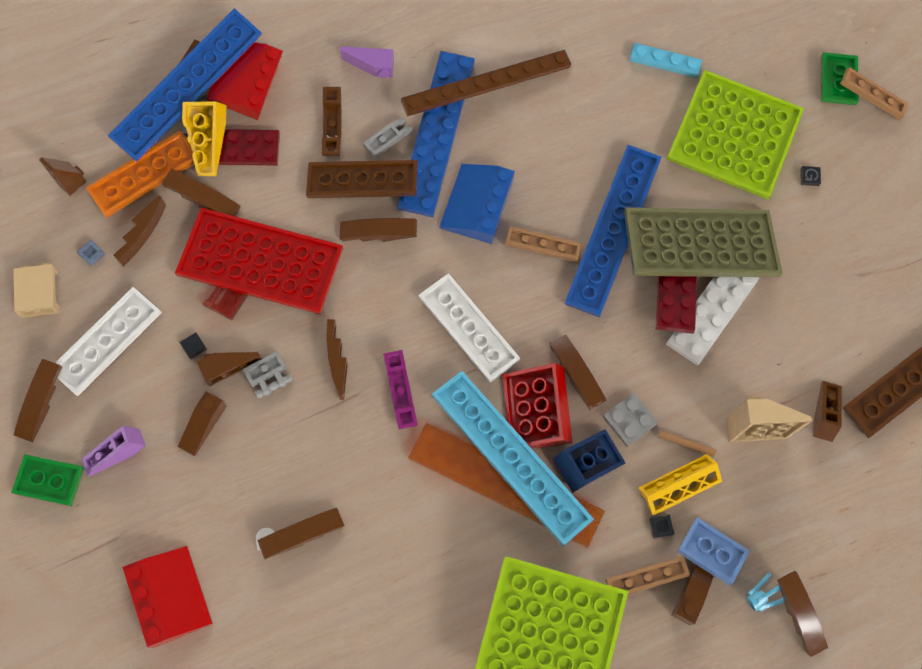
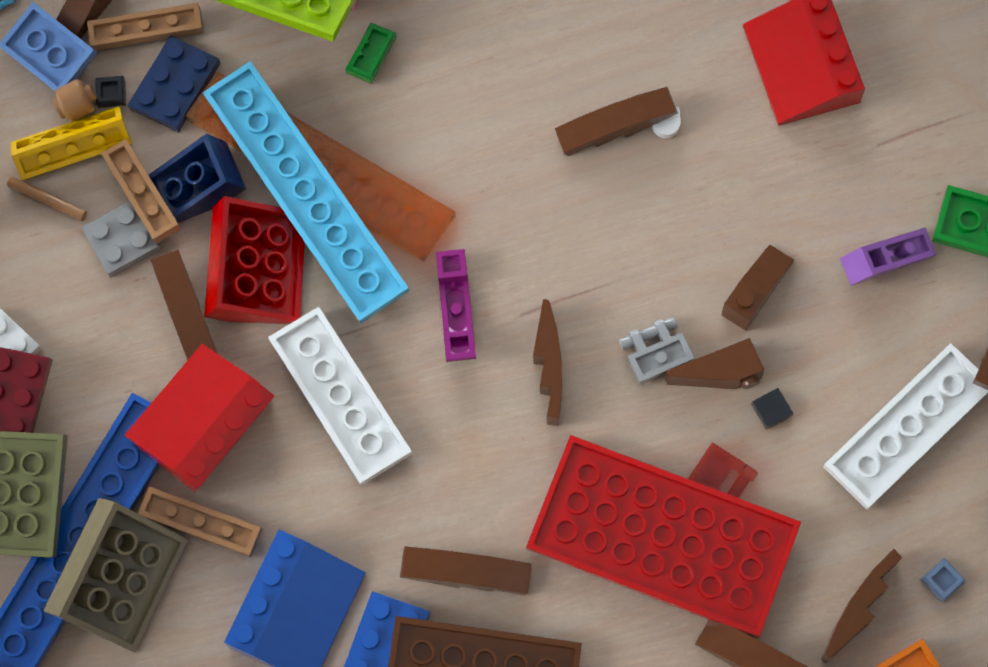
camera: 165 degrees left, 0 degrees up
(480, 572) = (371, 53): none -> green plate
(553, 300) = (199, 416): none -> red slope
(587, 205) = (116, 574): none -> dark tan slope
(617, 536) = (174, 83): none -> dark blue plate
(623, 449) = (141, 191): none -> medium nougat plate
(684, 512) = (74, 100): none -> medium nougat head

